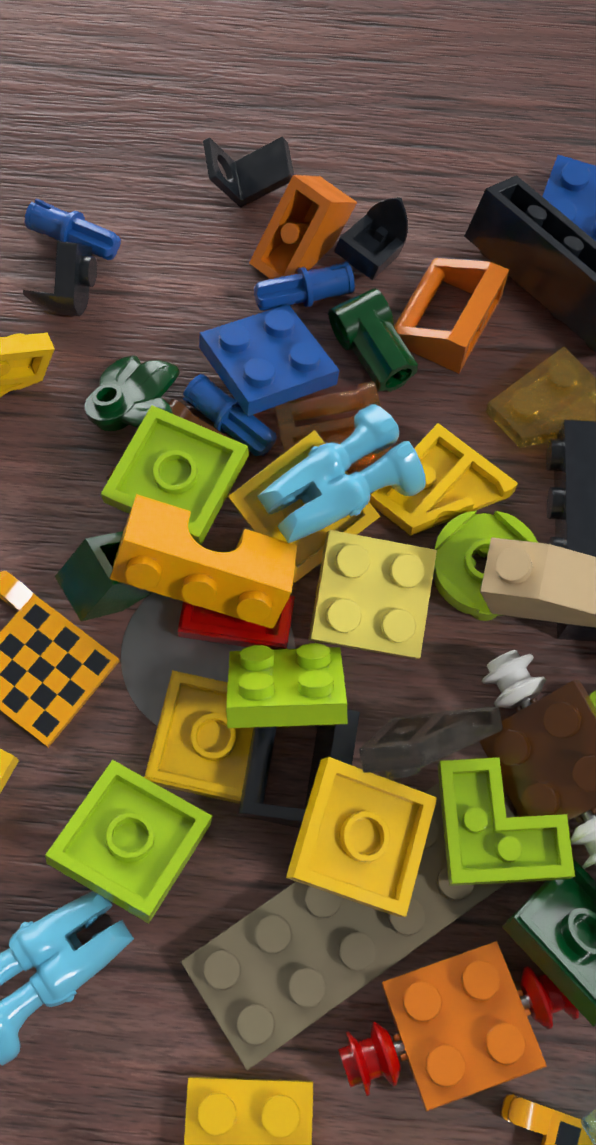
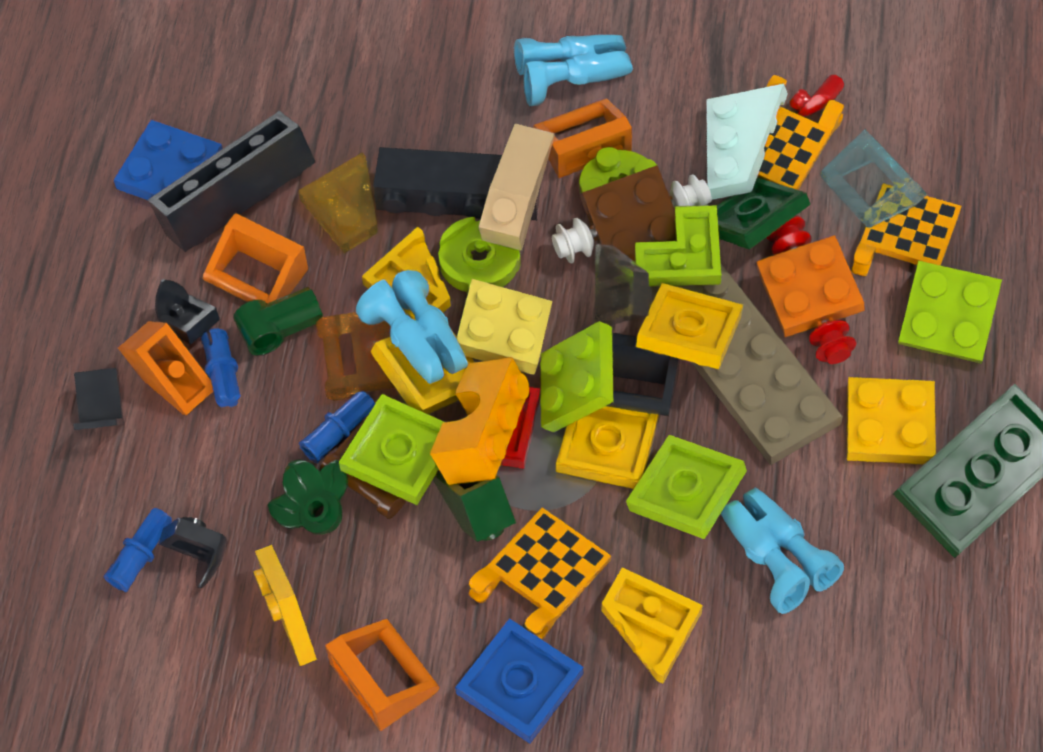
camera: 85 degrees left, 10 degrees down
(268, 359) = (291, 393): blue plate -> none

